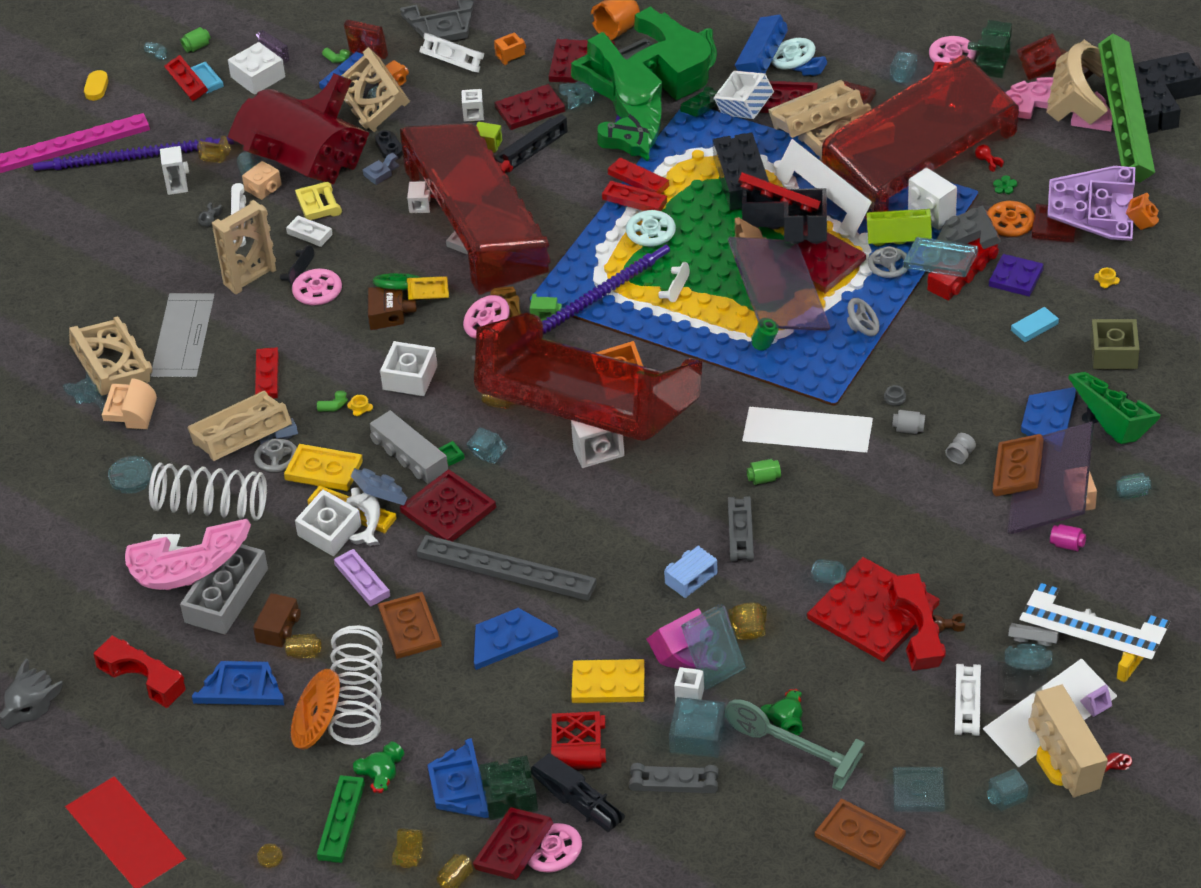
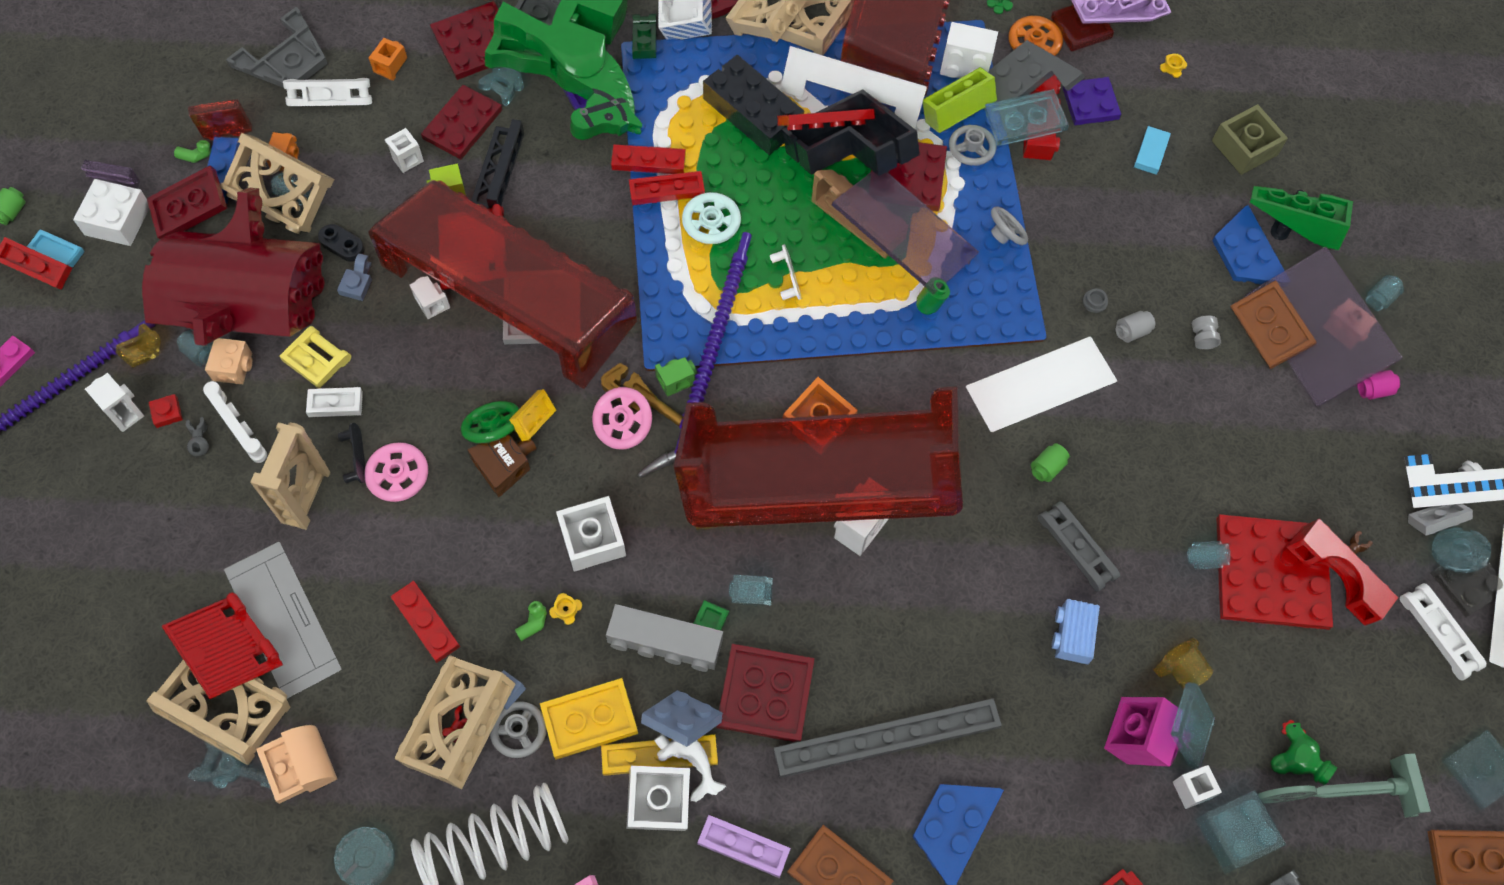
camera: 40 degrees left, 20 degrees up
(133, 326) = (222, 648): none -> red window
(202, 193) = (165, 411): none -> red plate
(306, 79) = (187, 202): none -> dark red plate
(608, 681) = (1099, 822): yellow plate -> none

